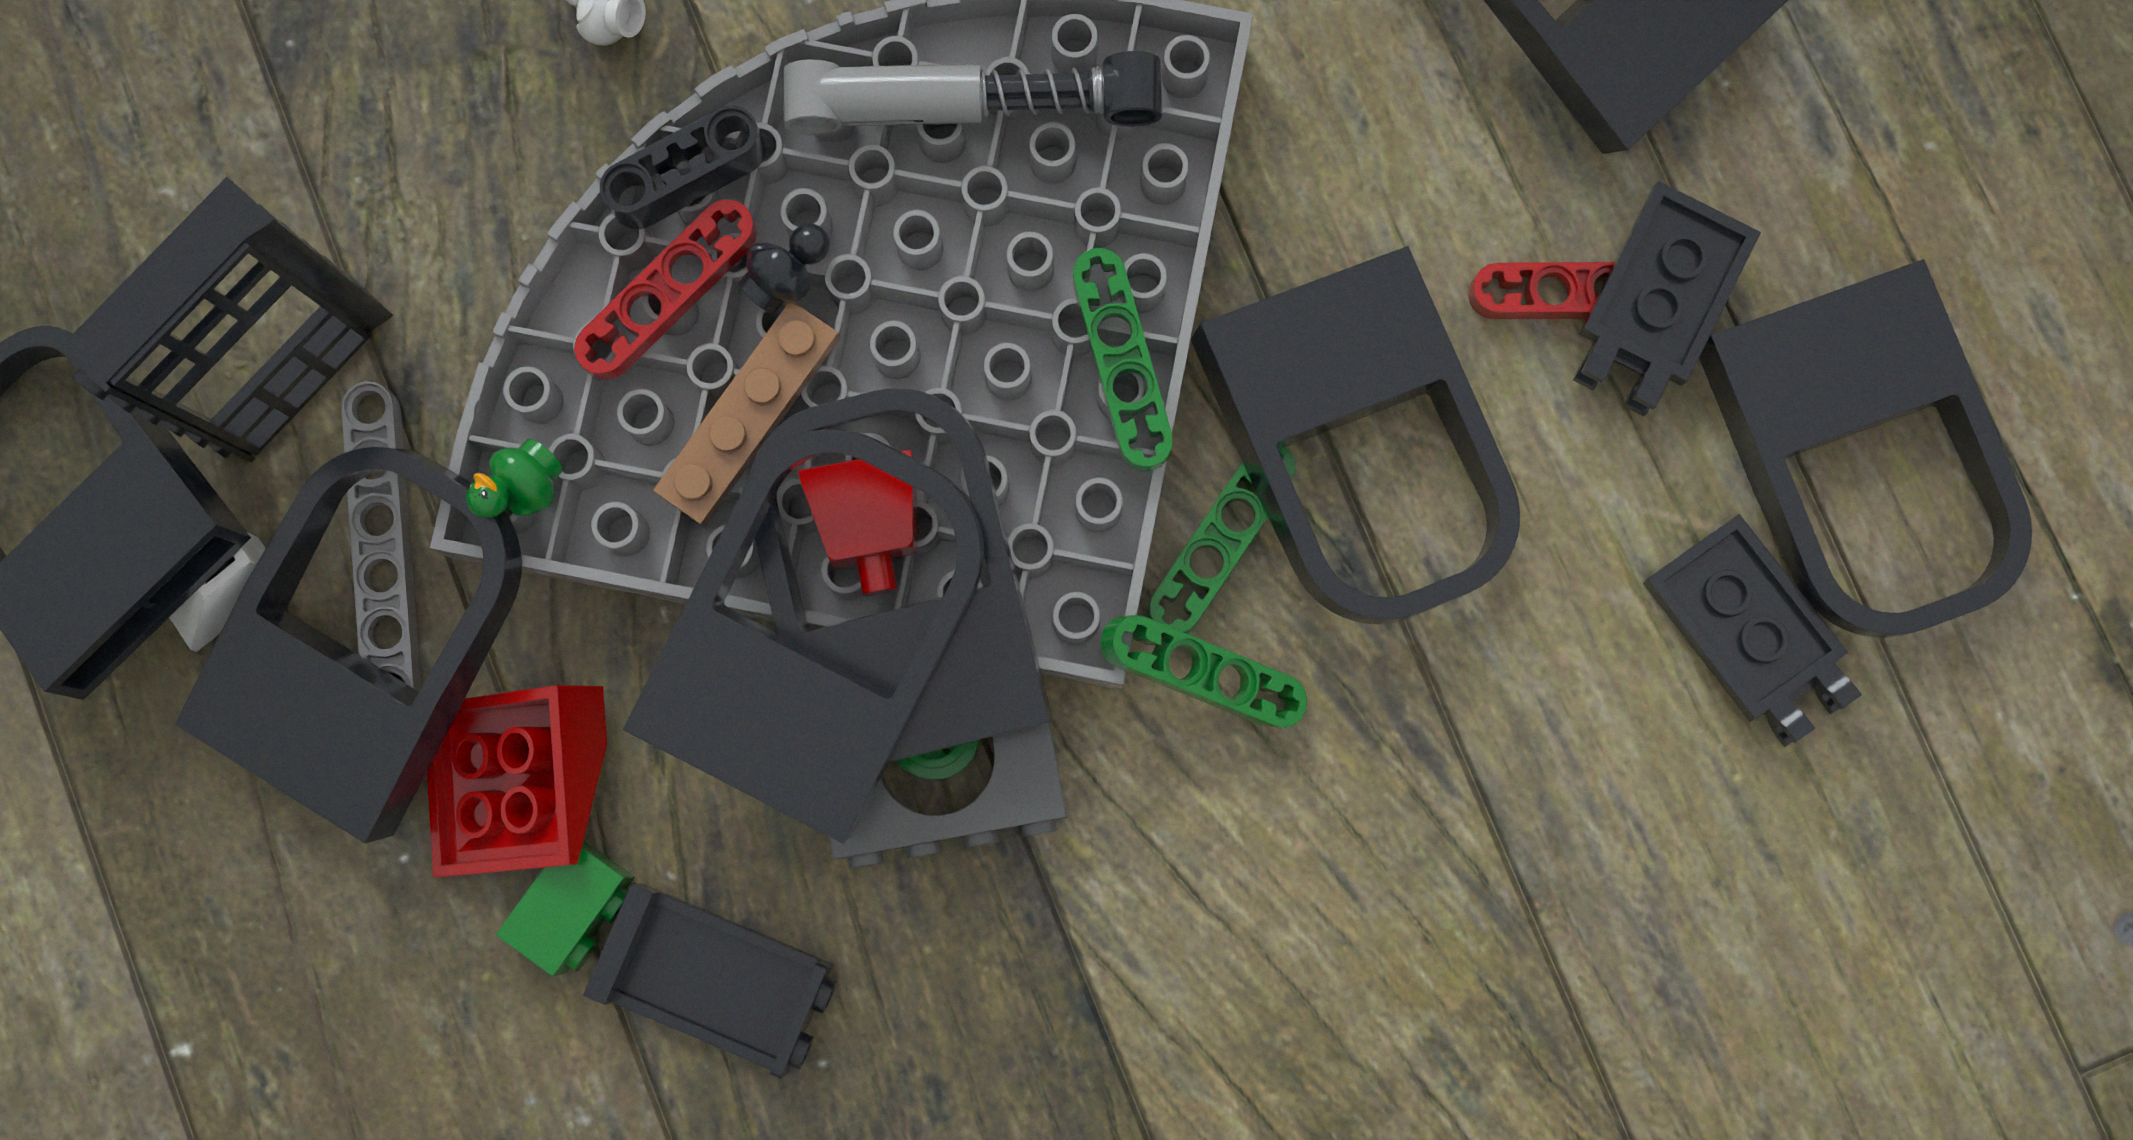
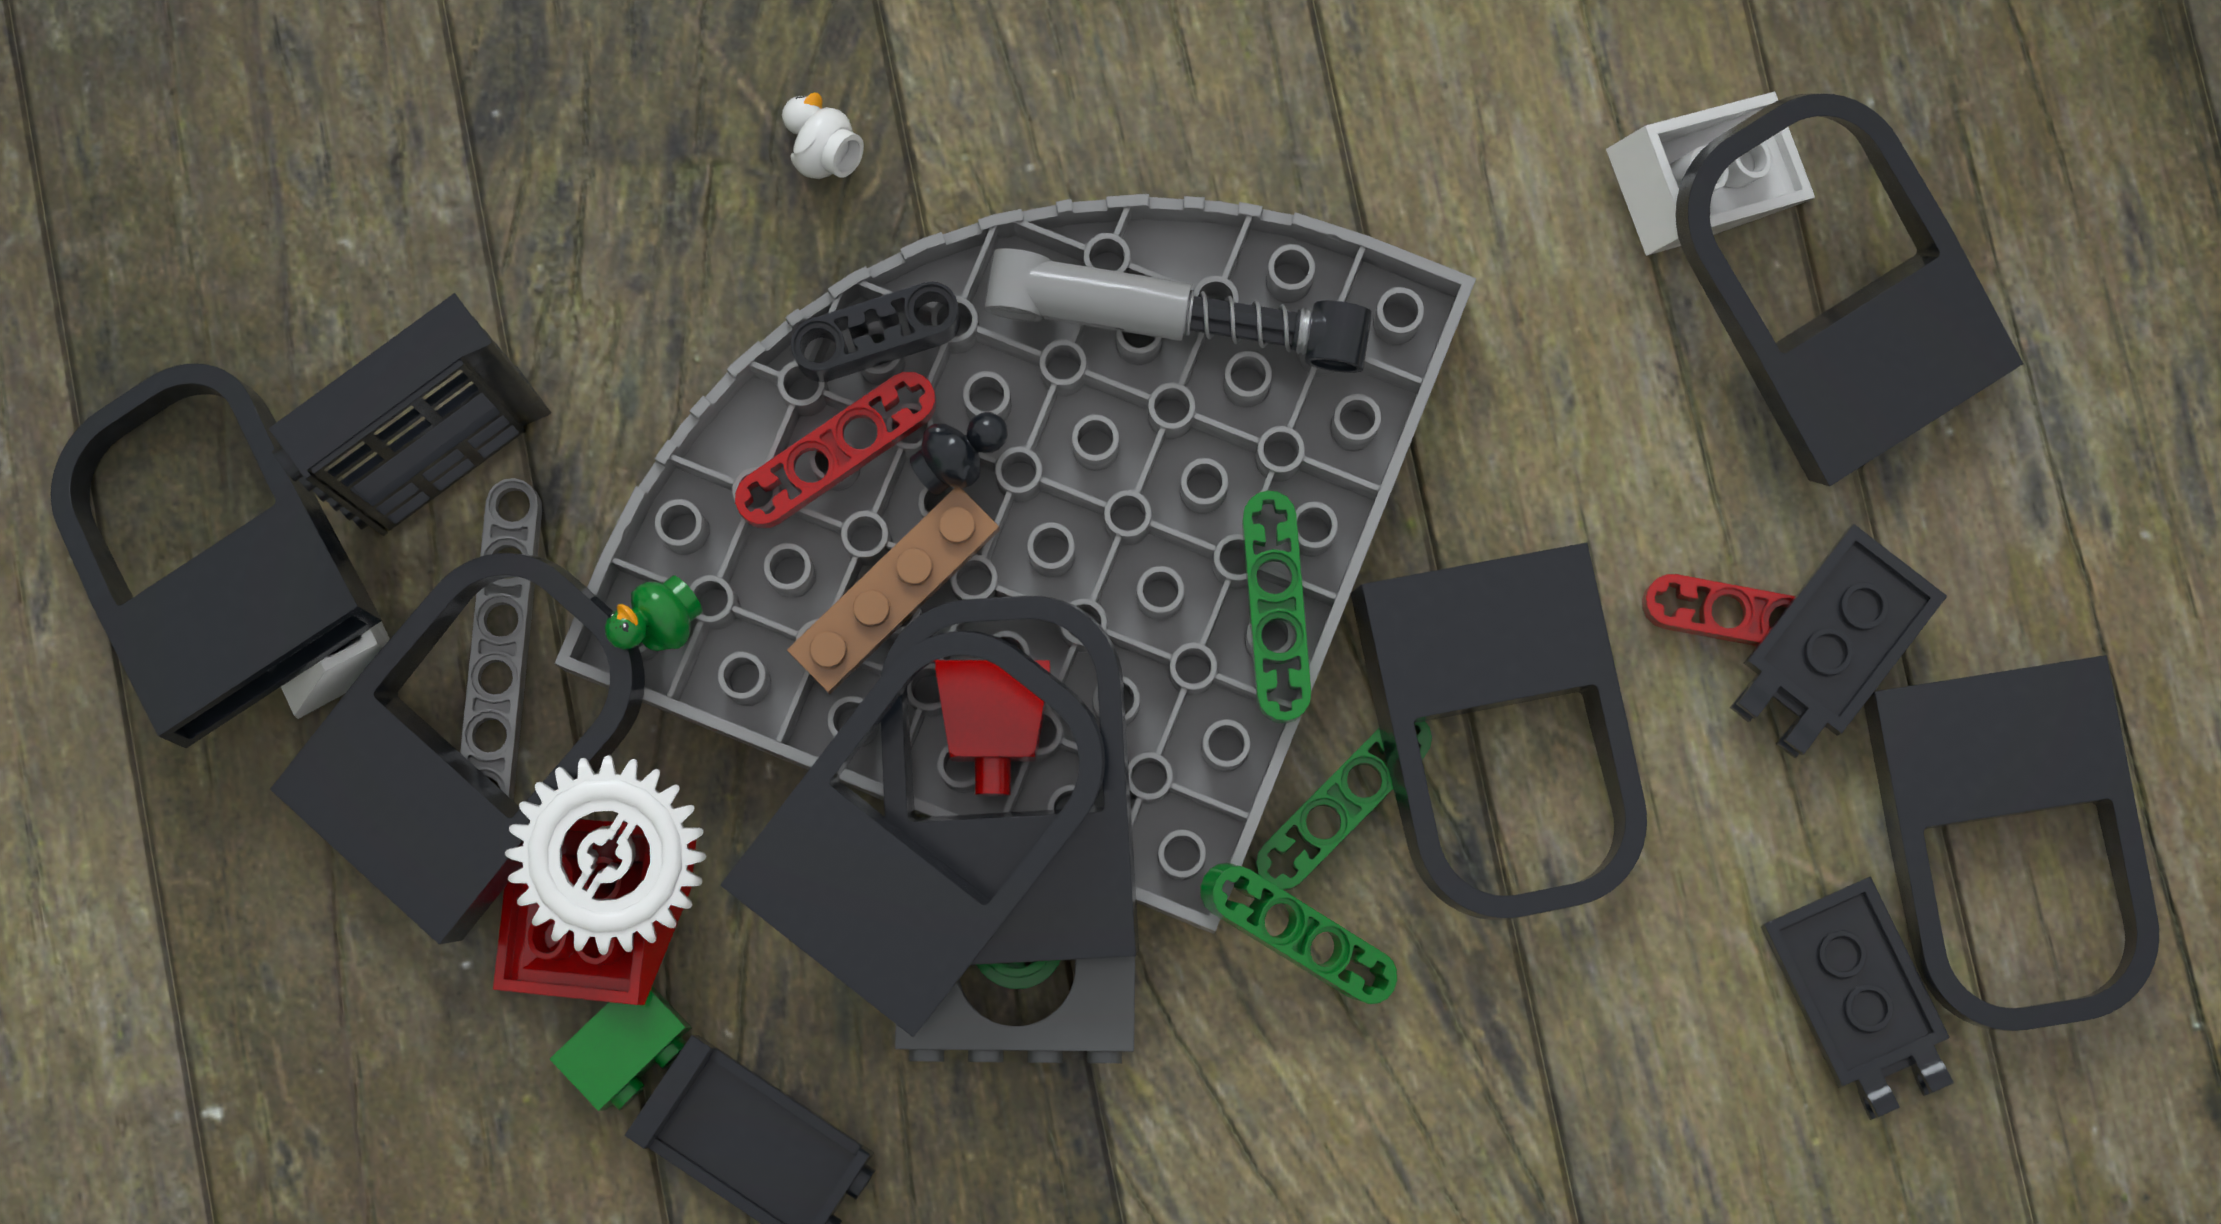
camera: 10 degrees right, 0 degrees up
(487, 779) = (575, 906): none -> white gear

